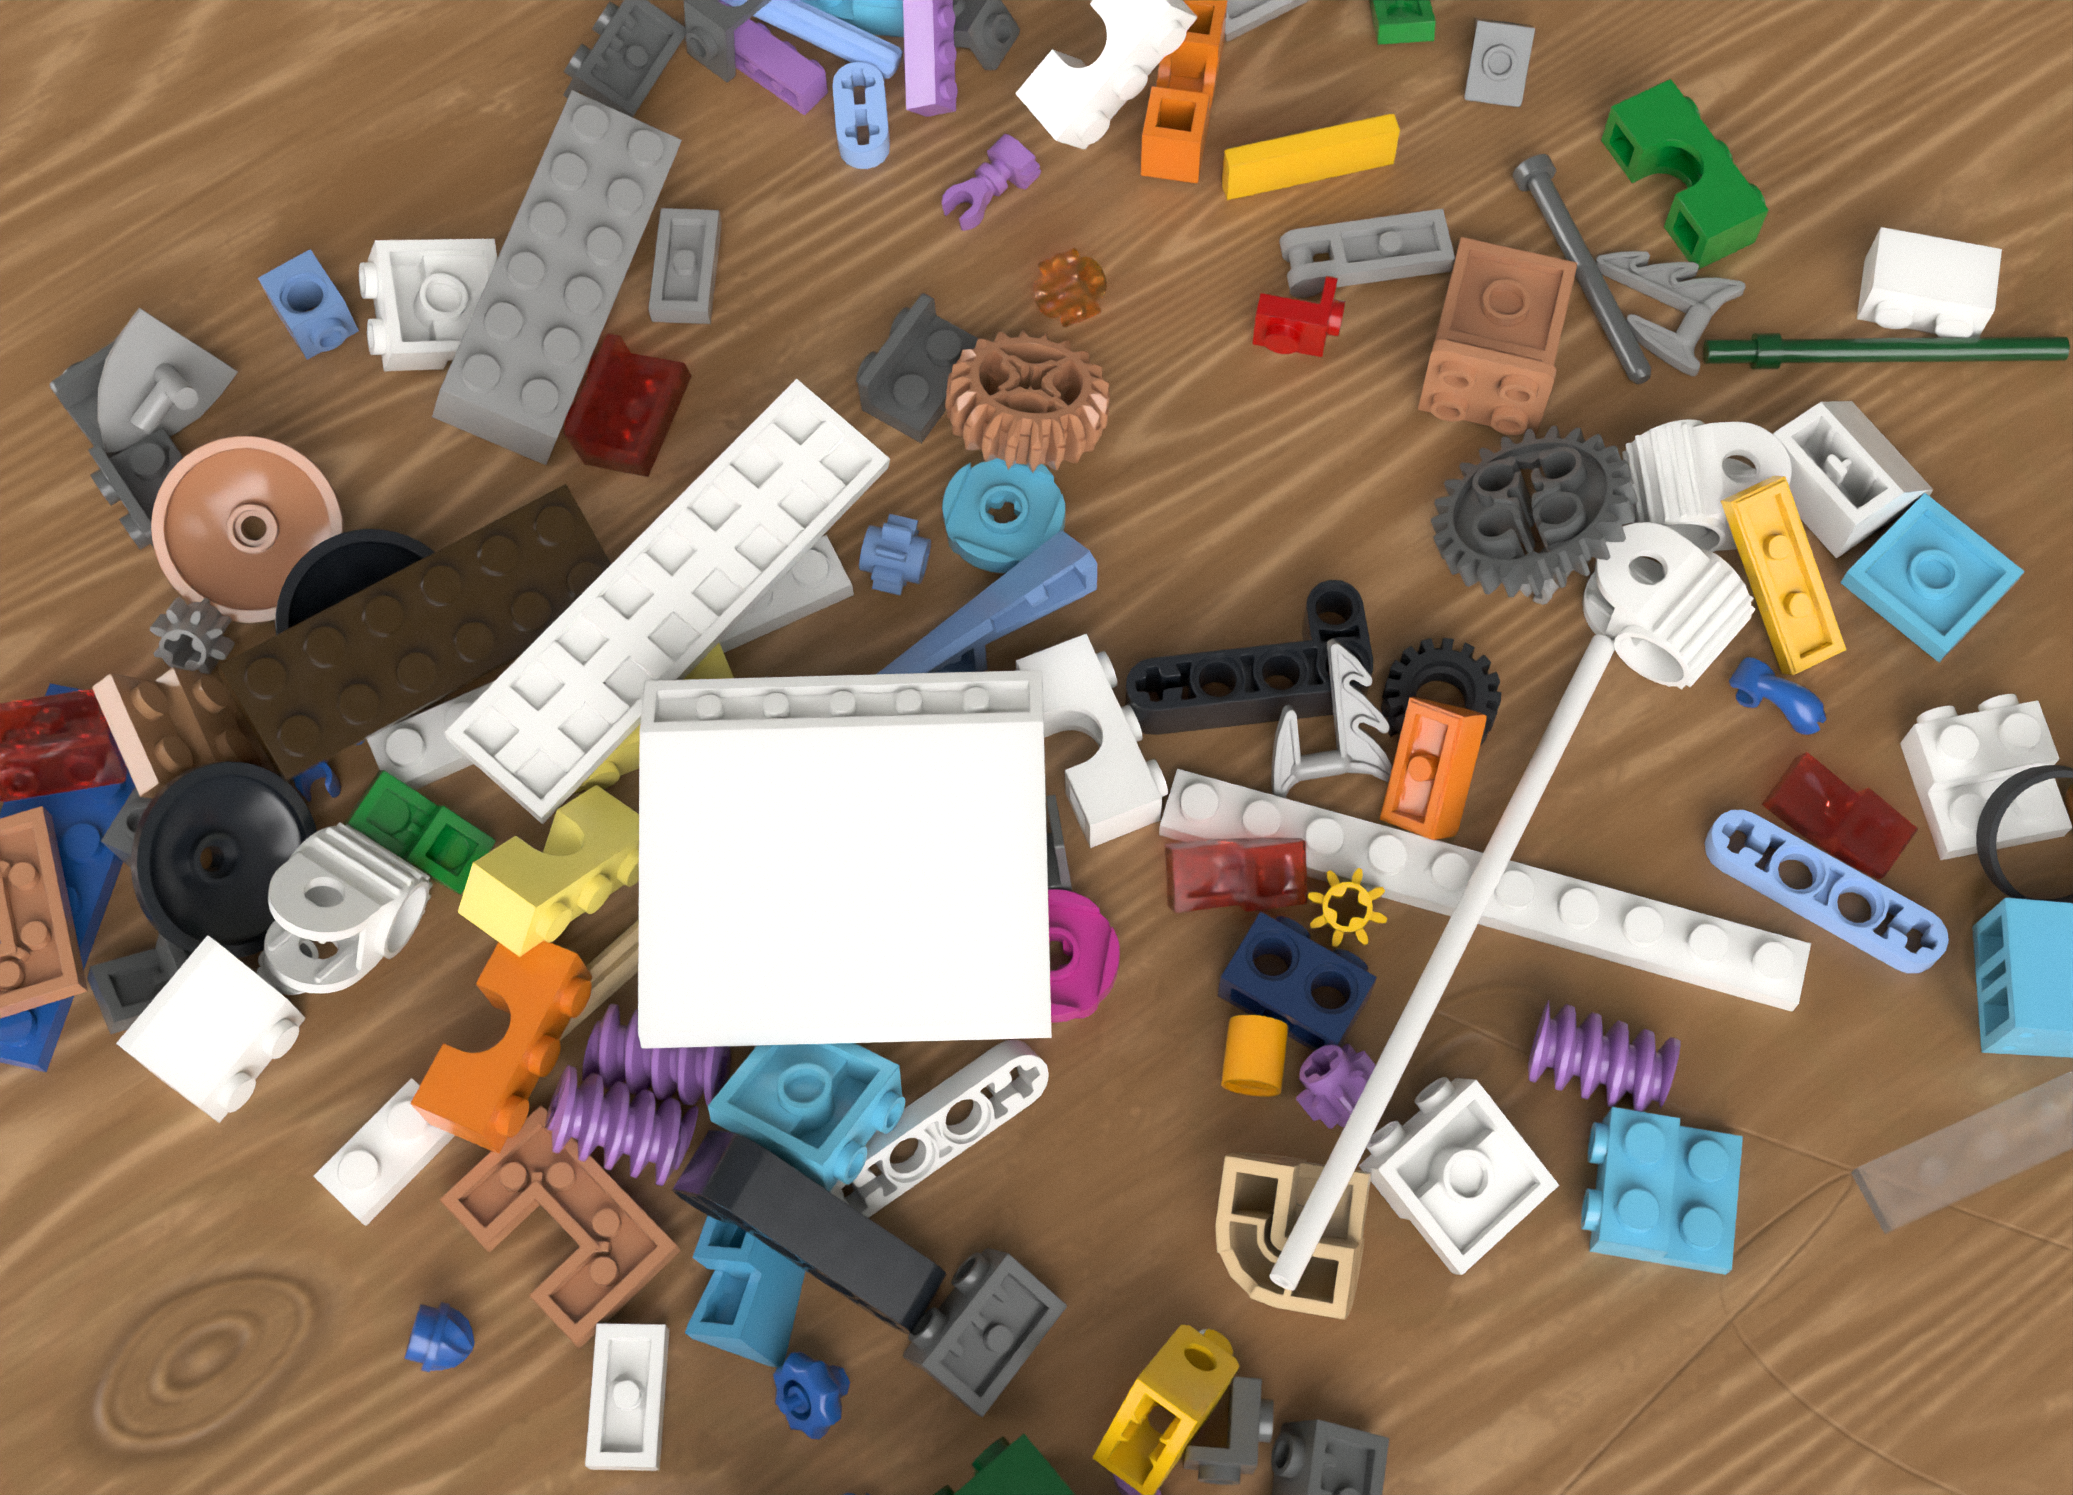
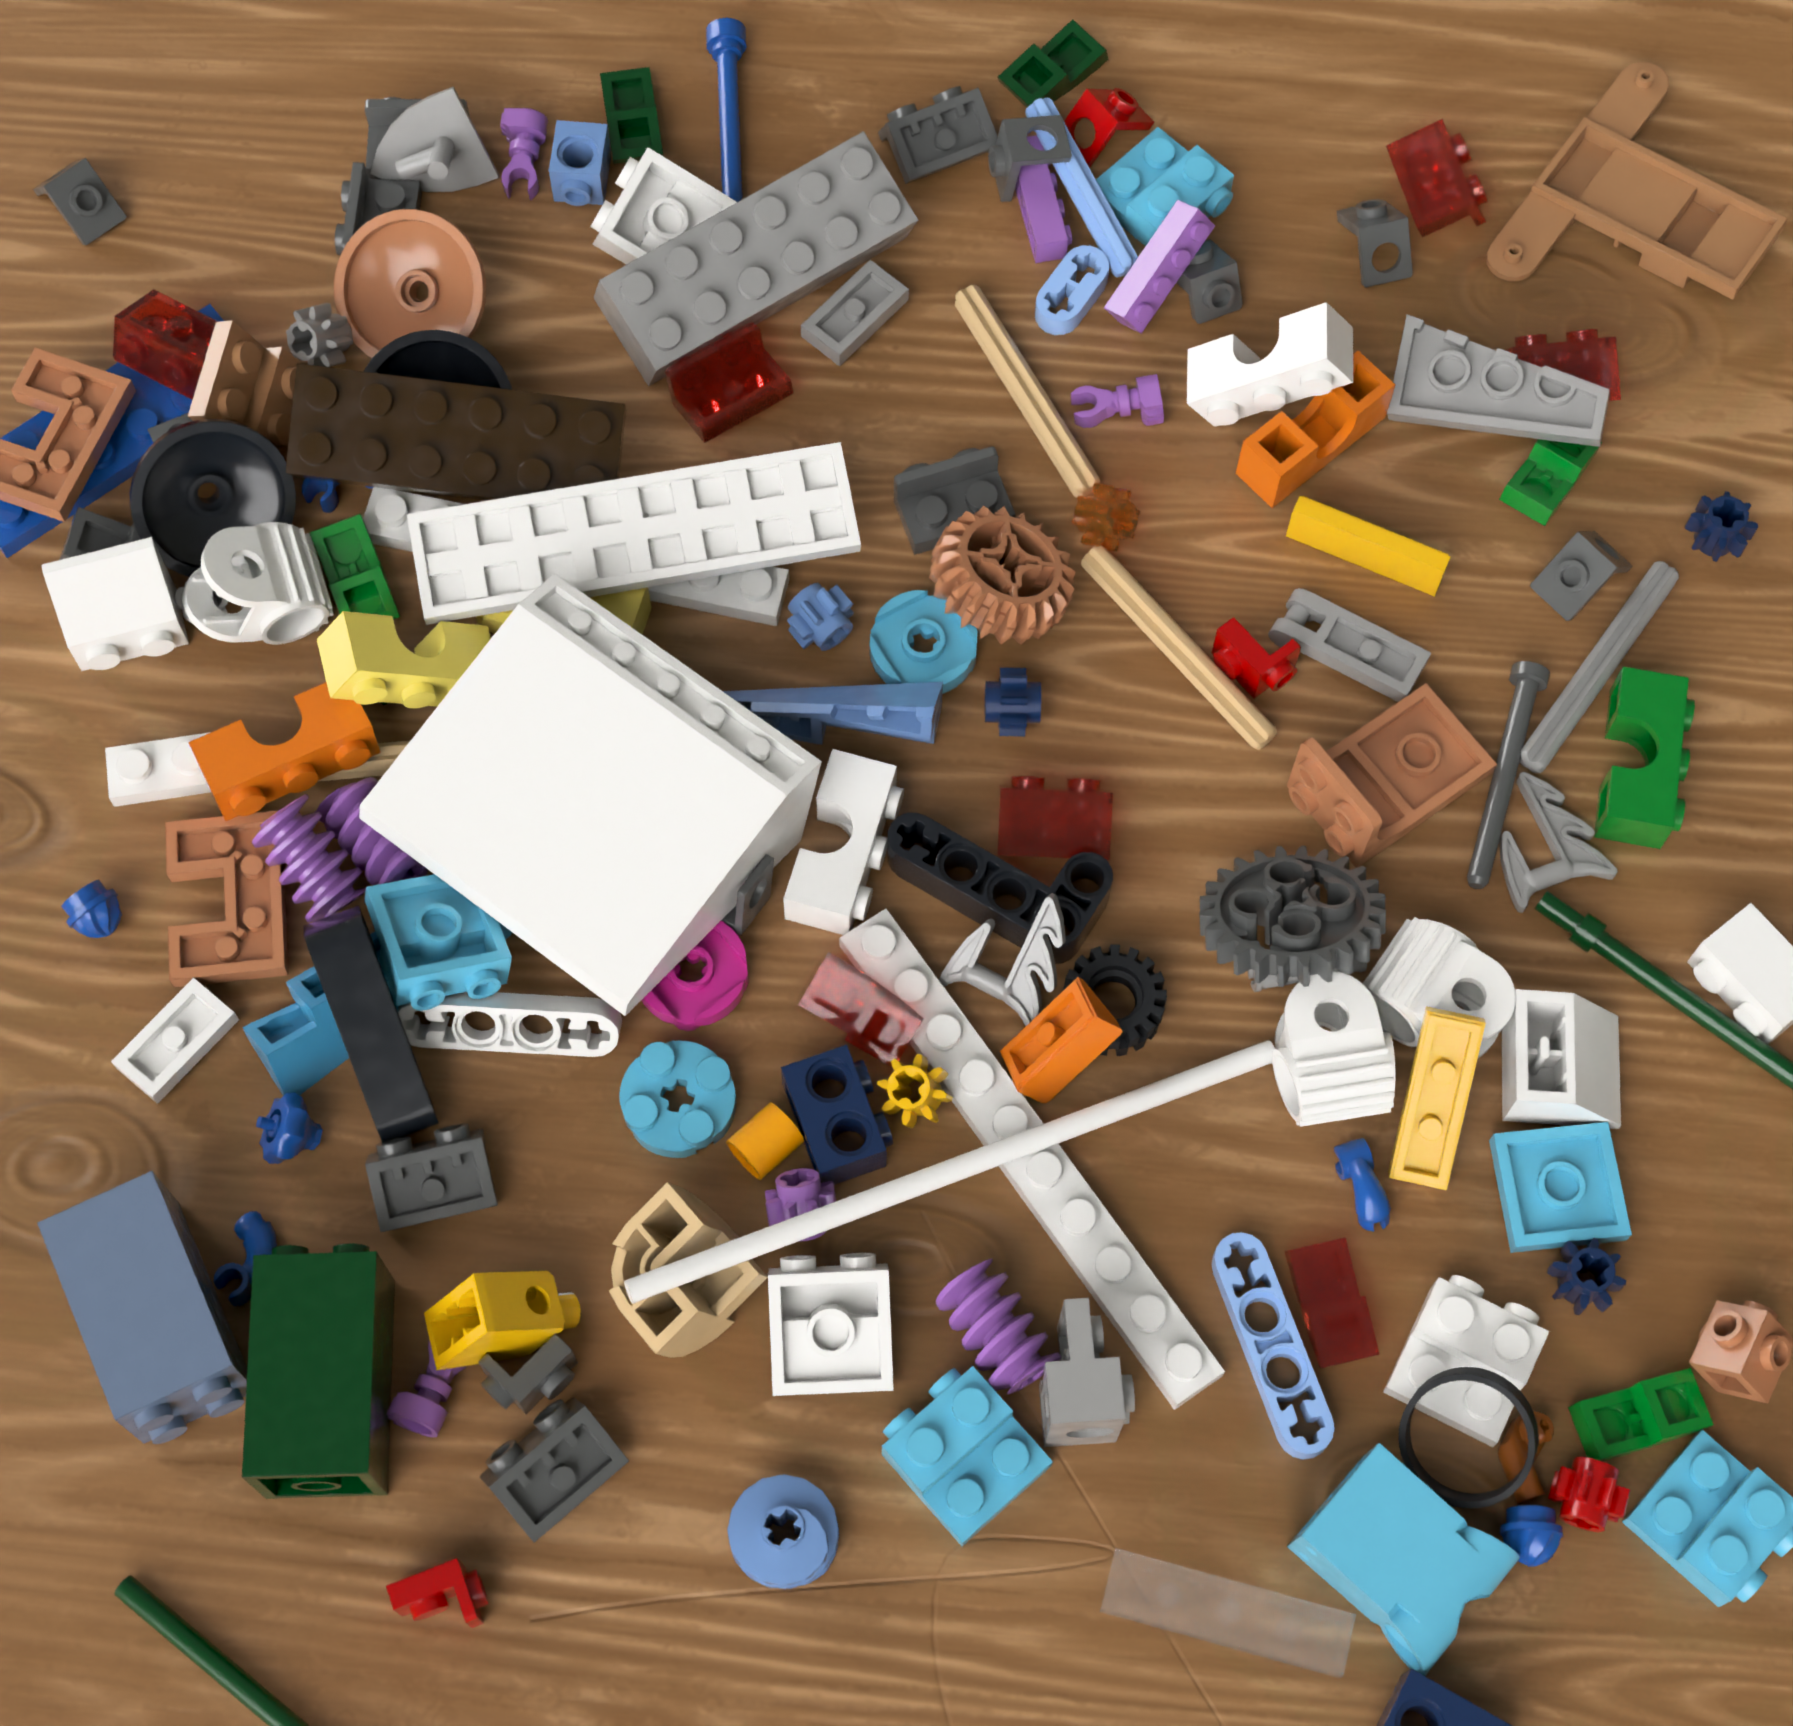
camera: 35 degrees right, 0 degrees up
(228, 313) = (524, 131): none -> medium lavender piece
(308, 222) = (631, 113): none -> dark green slope
(354, 108) = (726, 44): none -> blue piece
(899, 229) = (1026, 391): none -> tan axle
(1125, 1114) = (694, 1126): none -> medium azure plate
(1130, 505) = (1012, 702): none -> dark blue gear
(1225, 356) = (1179, 647): none -> tan axle
(1254, 581) = (1054, 820): none -> clear red bracket
(1559, 1417) = (773, 1502): none -> medium blue piece
(1580, 126) = (1598, 667): none -> light grey axle
(1721, 1050) = (1083, 1394): none -> light grey brick
(2019, 634) = (1582, 1261): none -> dark blue gear

